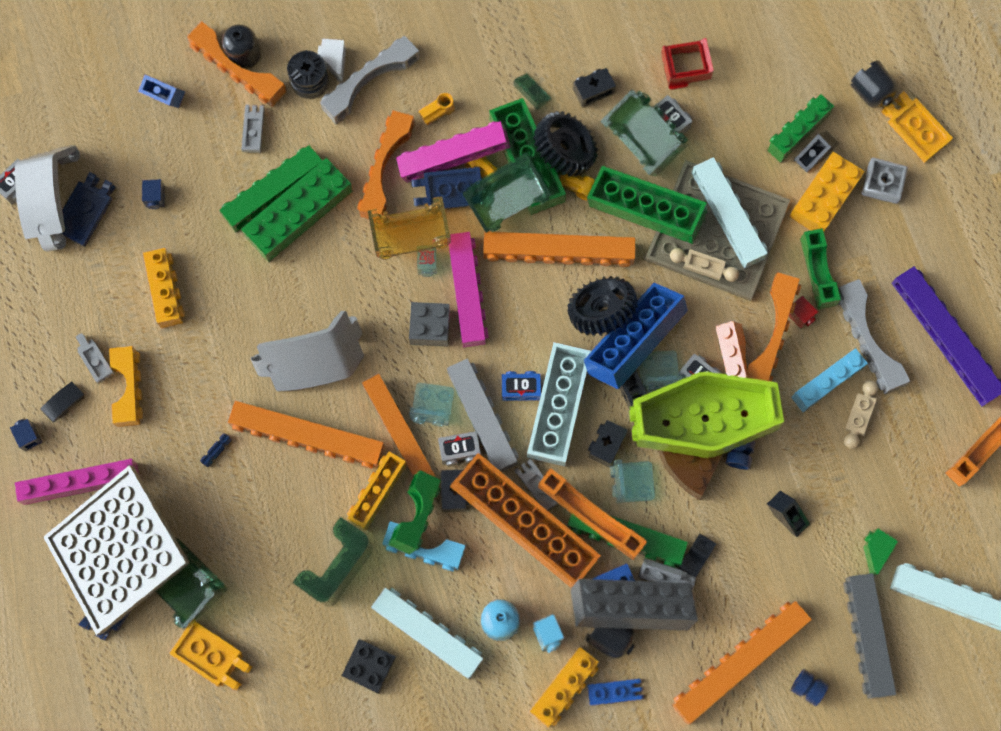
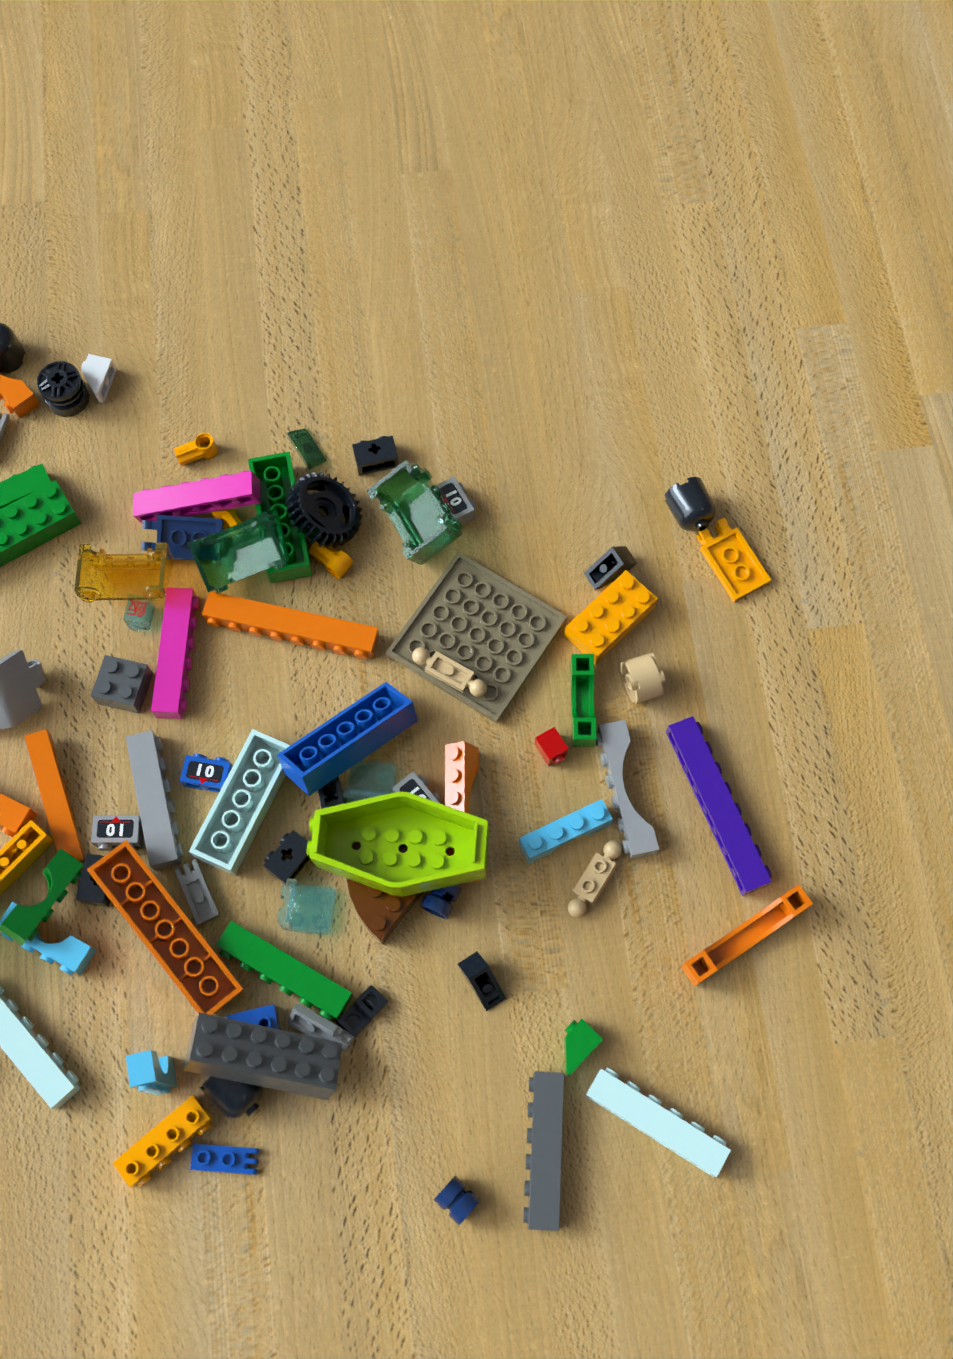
camera: 10 degrees right, 5 degrees down
(397, 57) = (166, 387): light grey arch -> none
(397, 133) = (144, 467): orange arch -> none
(432, 404) = (100, 776): clear light blue bracket -> none
(500, 629) = (117, 1044): medium azure cylinder -> none
(586, 306) = (300, 698): black gear -> none
(607, 527) = (242, 937): orange arch -> none
(647, 204) = (400, 593): green brick -> none
(681, 80) = (477, 462): red piece -> none
(729, 212) = (491, 618): light aqua brick -> none
(741, 662) = (380, 1153): orange brick -> none
(783, 293) = (530, 719): orange arch -> none
(800, 128) = (597, 538): green brick -> none
(866, 241) = (642, 678): none -> tan brick
(895, 177) = (681, 626): light grey brick -> none

